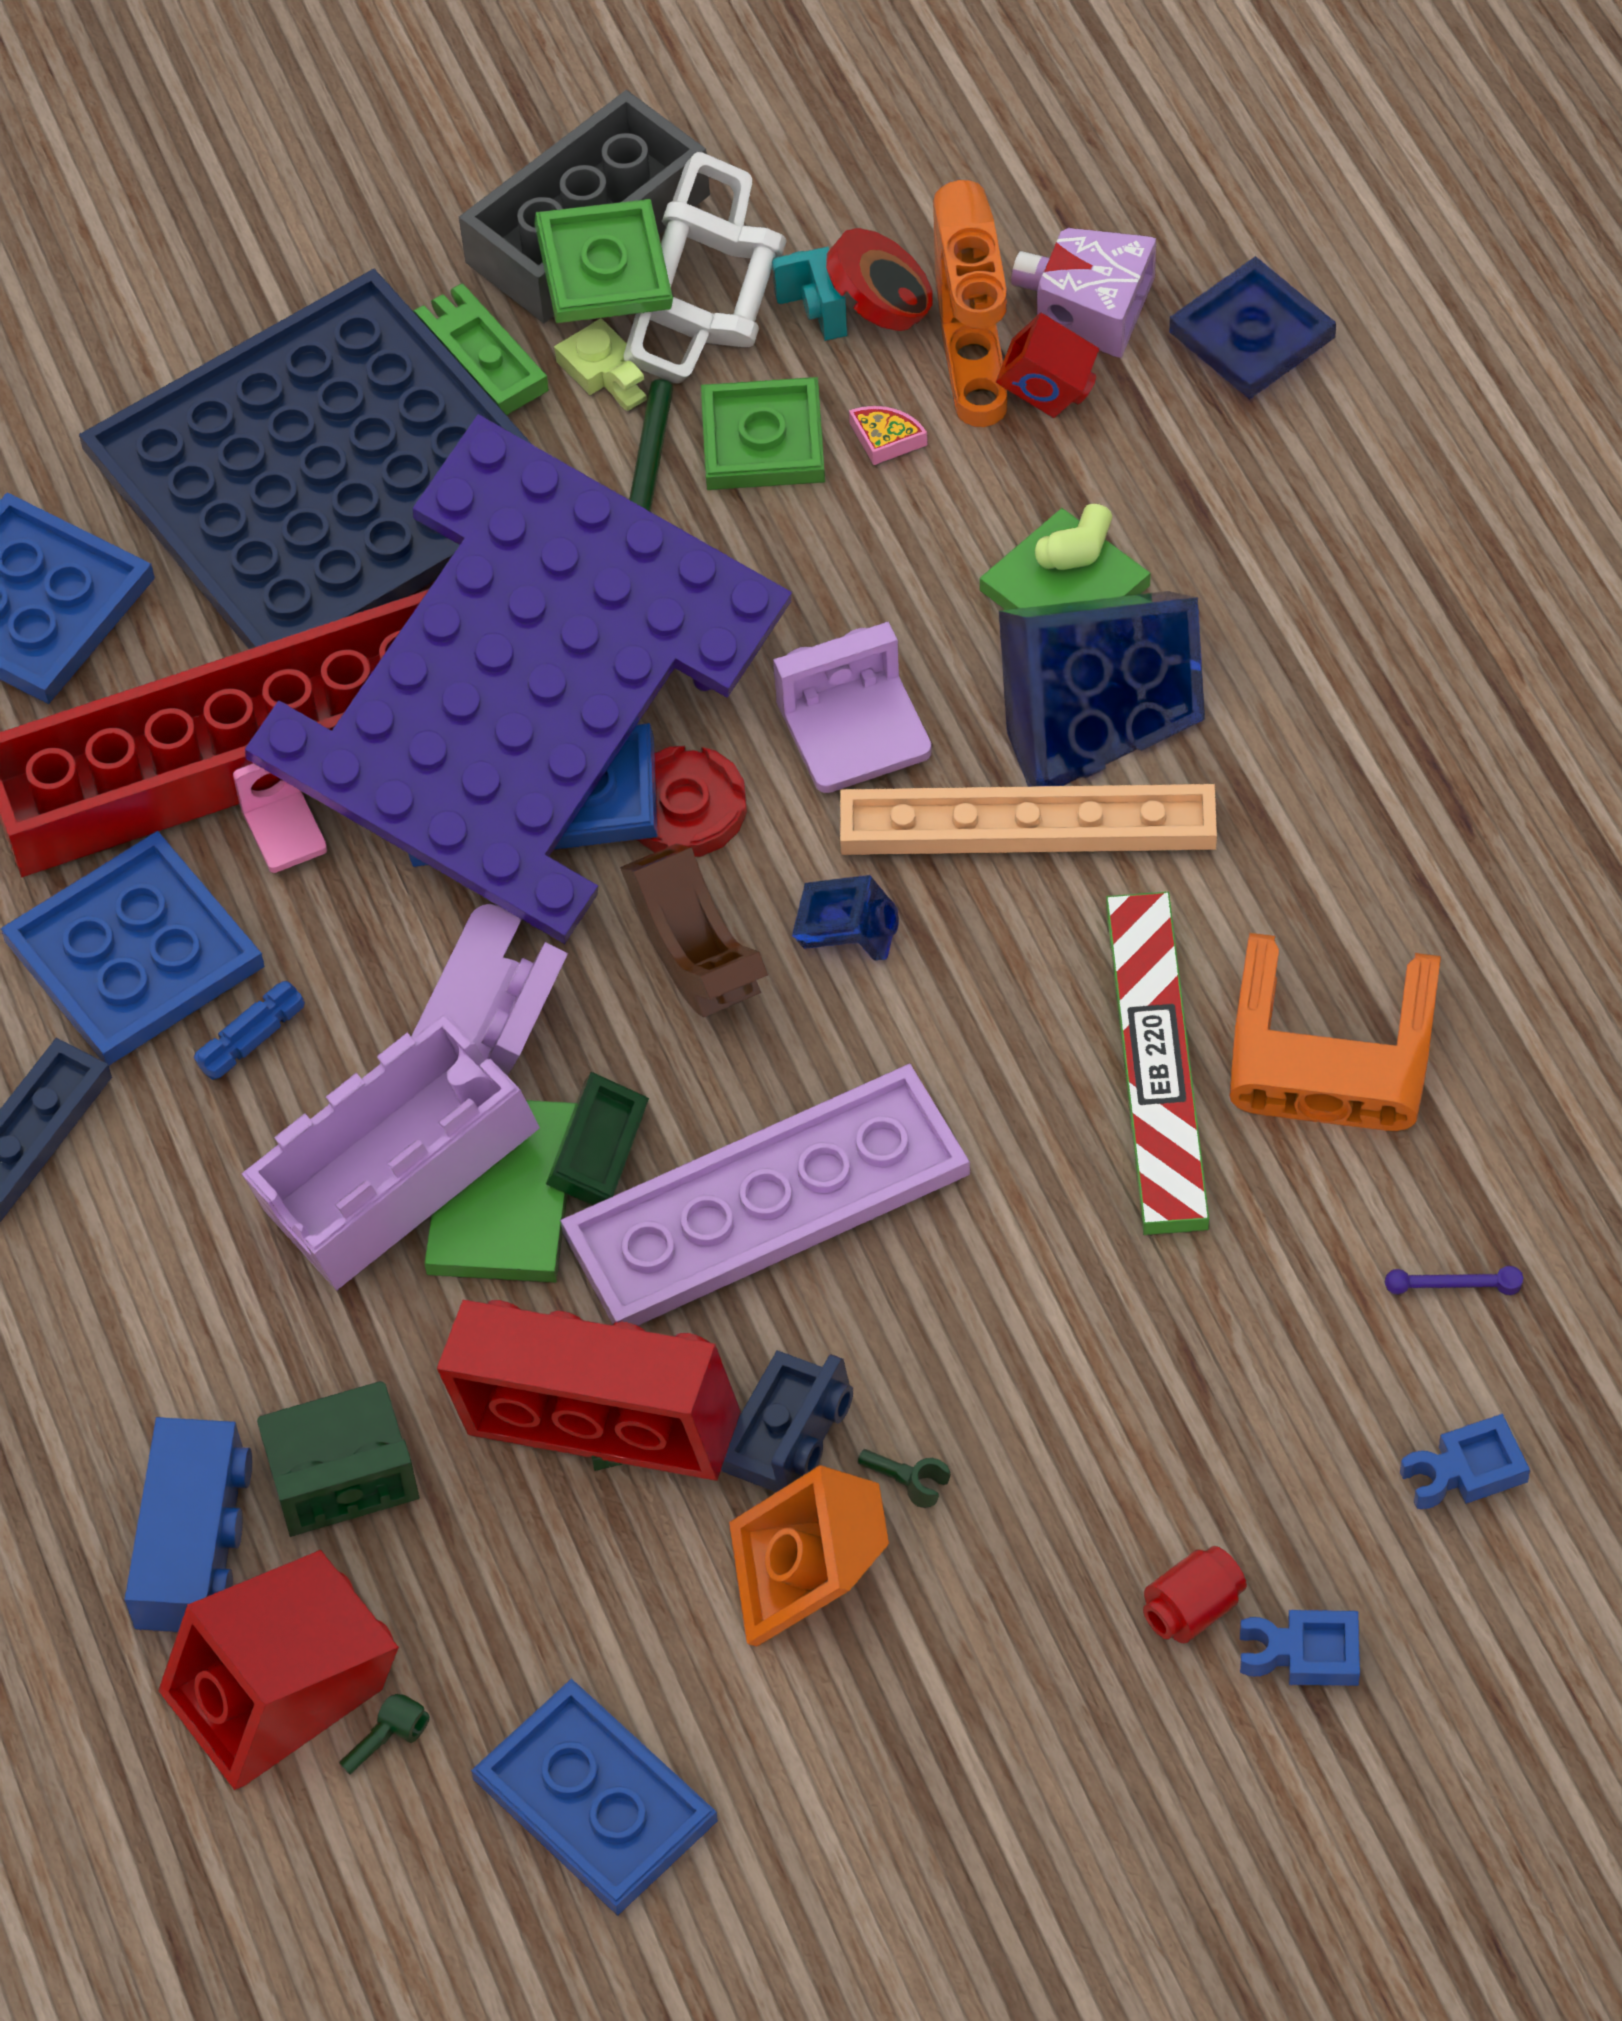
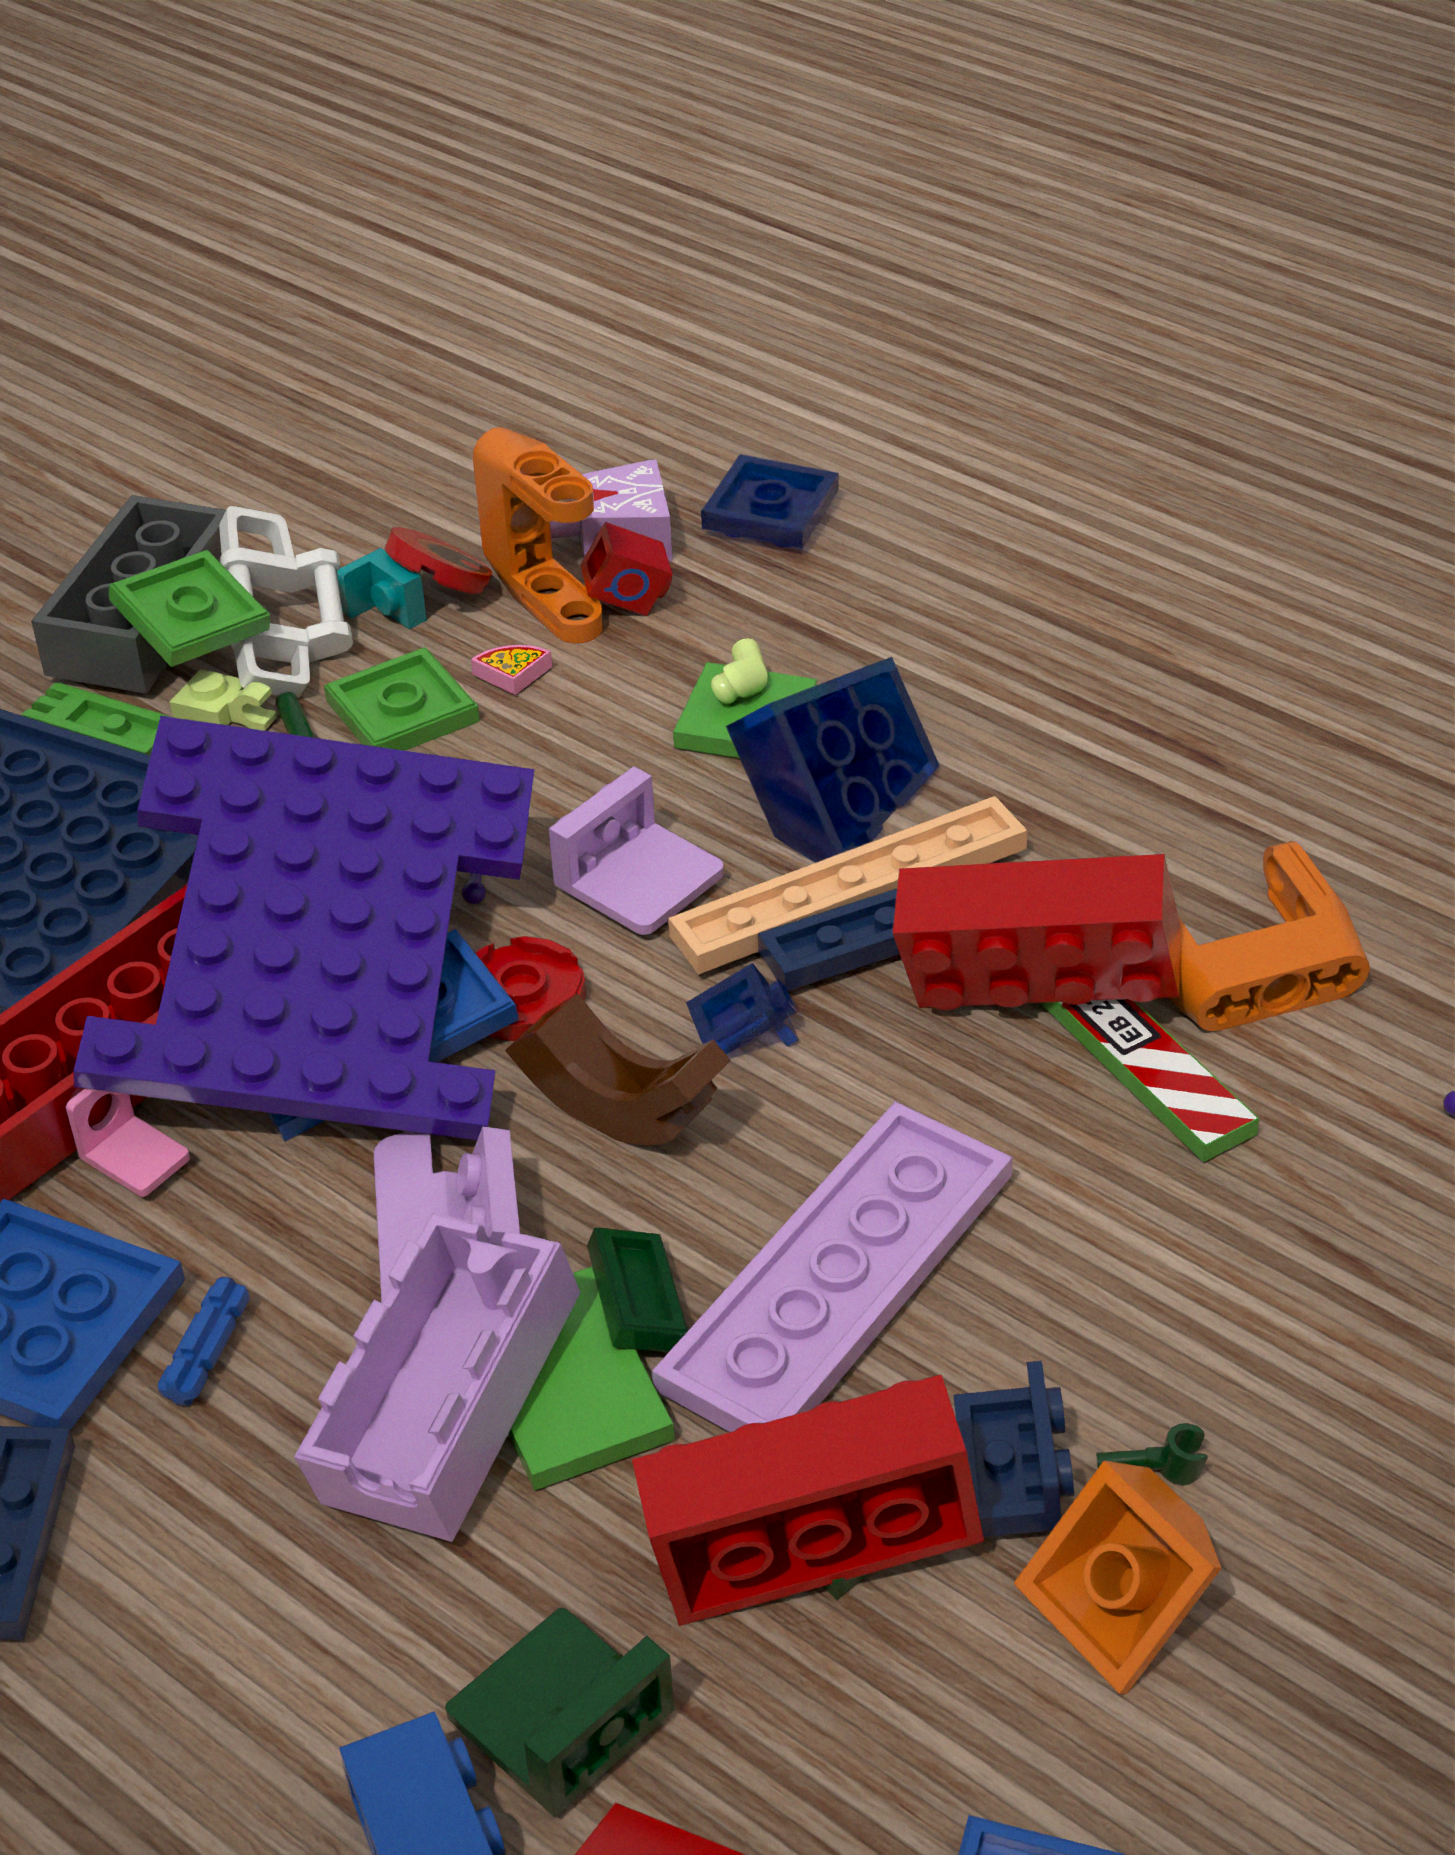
camera: 30 degrees left, 15 degrees down
(998, 877) = (831, 941): none -> dark blue plate
(1117, 963) = (1039, 932): none -> red brick

